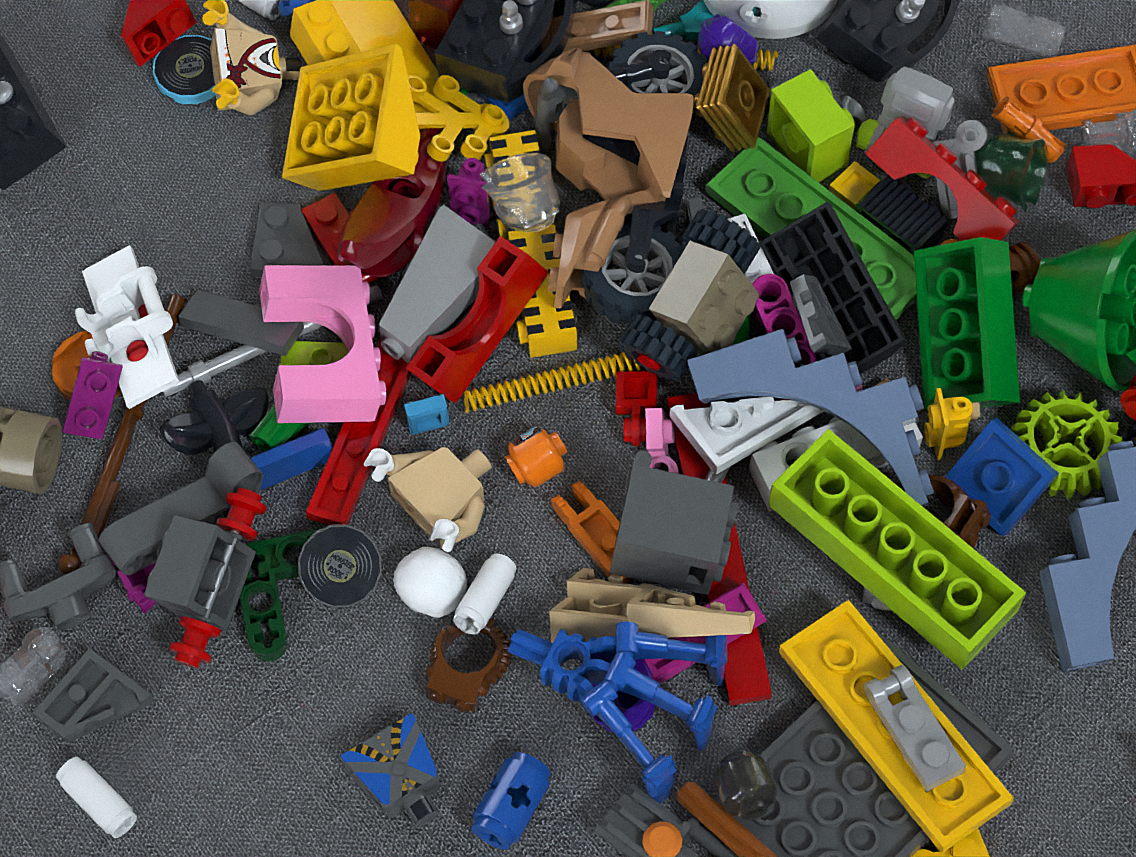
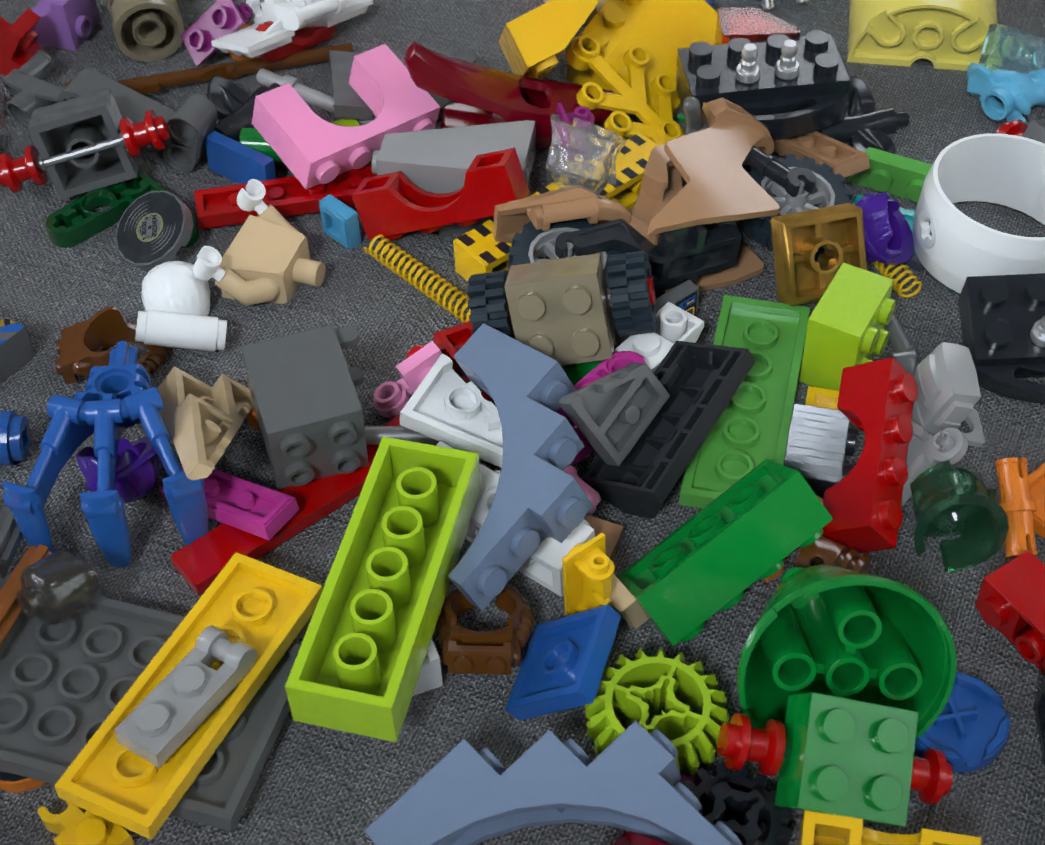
camera: 60 degrees right, 15 degrees down
(536, 456) = (345, 304): orange head -> none

